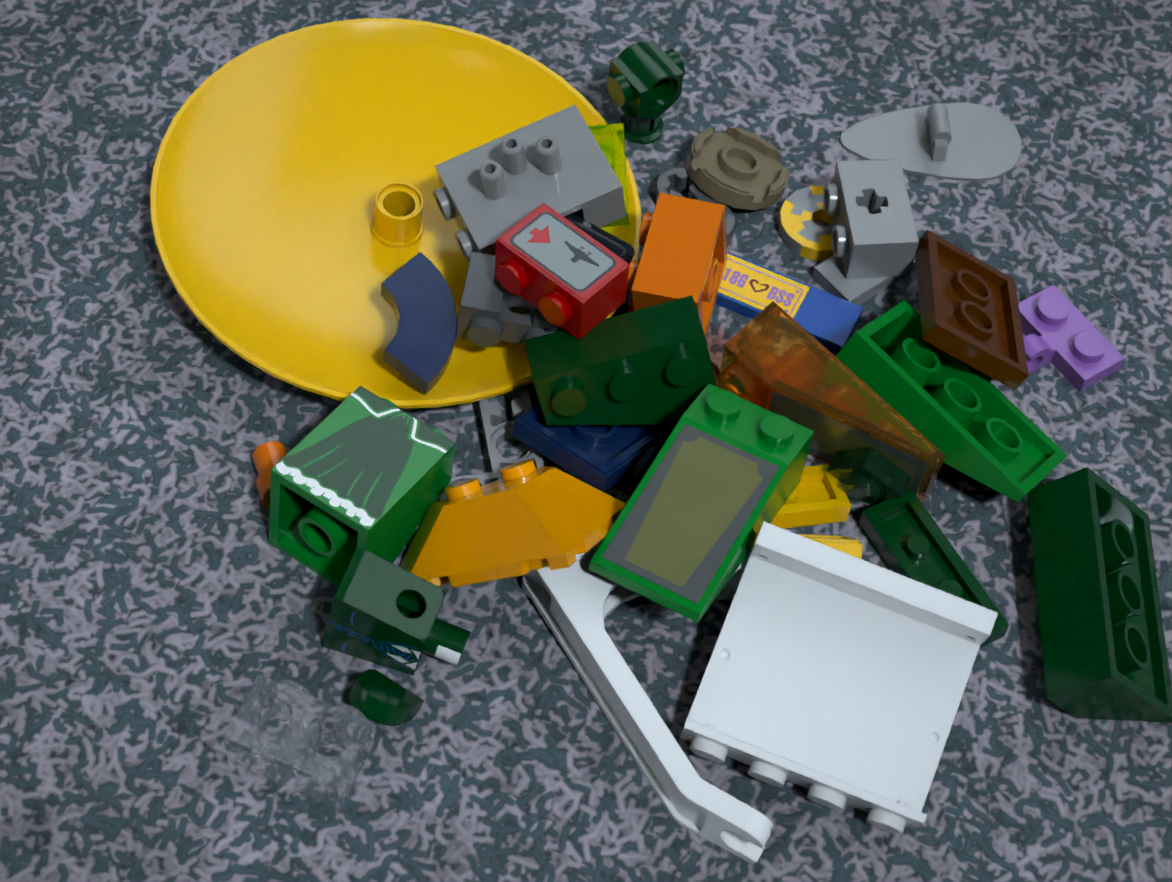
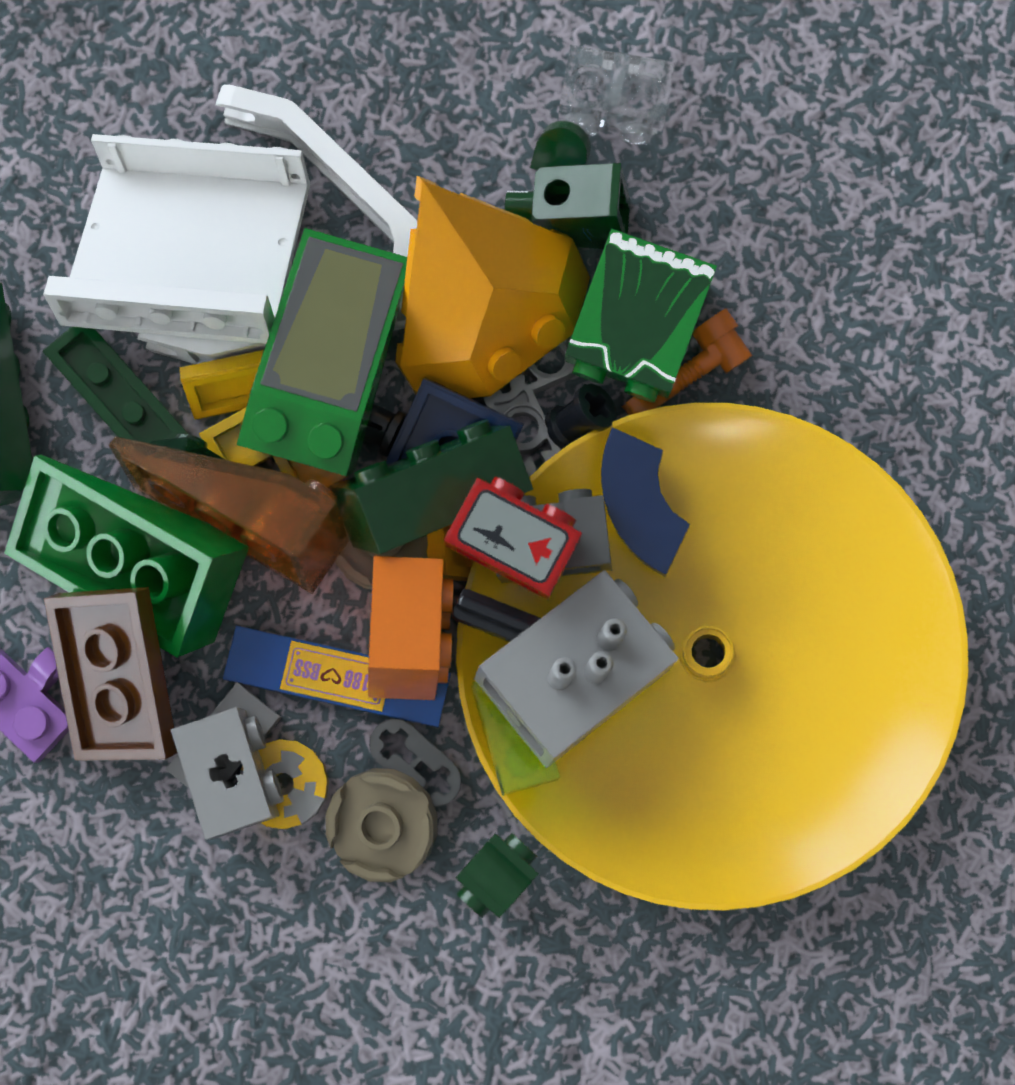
camera: 170 degrees right, 25 degrees up
(456, 422) = (588, 411): none -> black bush
(940, 140) = (175, 943): light grey shield -> none

